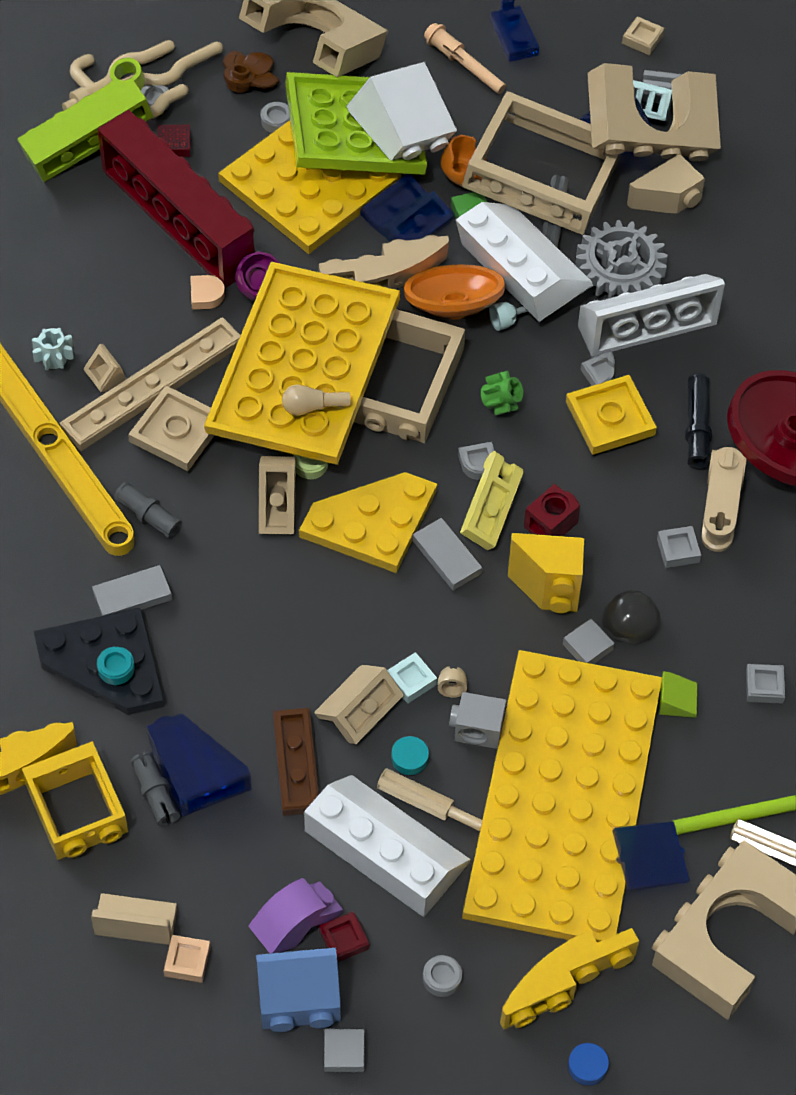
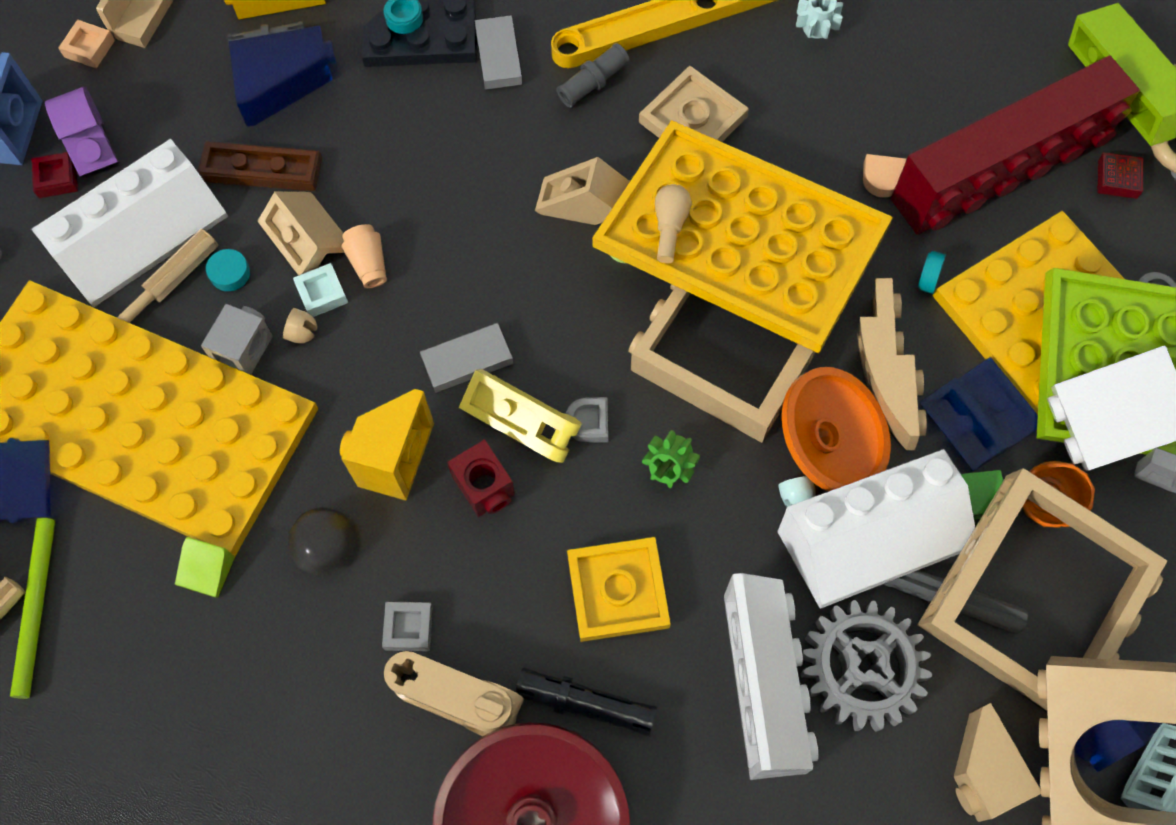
camera: 105 degrees right, 10 degrees up
(104, 369) = (788, 65): tan slope -> none
(143, 387) = (767, 111): tan tile -> none
(251, 273) = (905, 223): magenta hair -> none
(295, 249) = (931, 271): none -> teal tile
(372, 520) = (532, 291): yellow plate -> none
(372, 645) = (365, 253): none -> light nougat cone
(588, 643) = (305, 485): light grey tile -> none
(599, 368) = (694, 597): light grey tile -> none
(765, 683) = (189, 679): light grey tile -> none

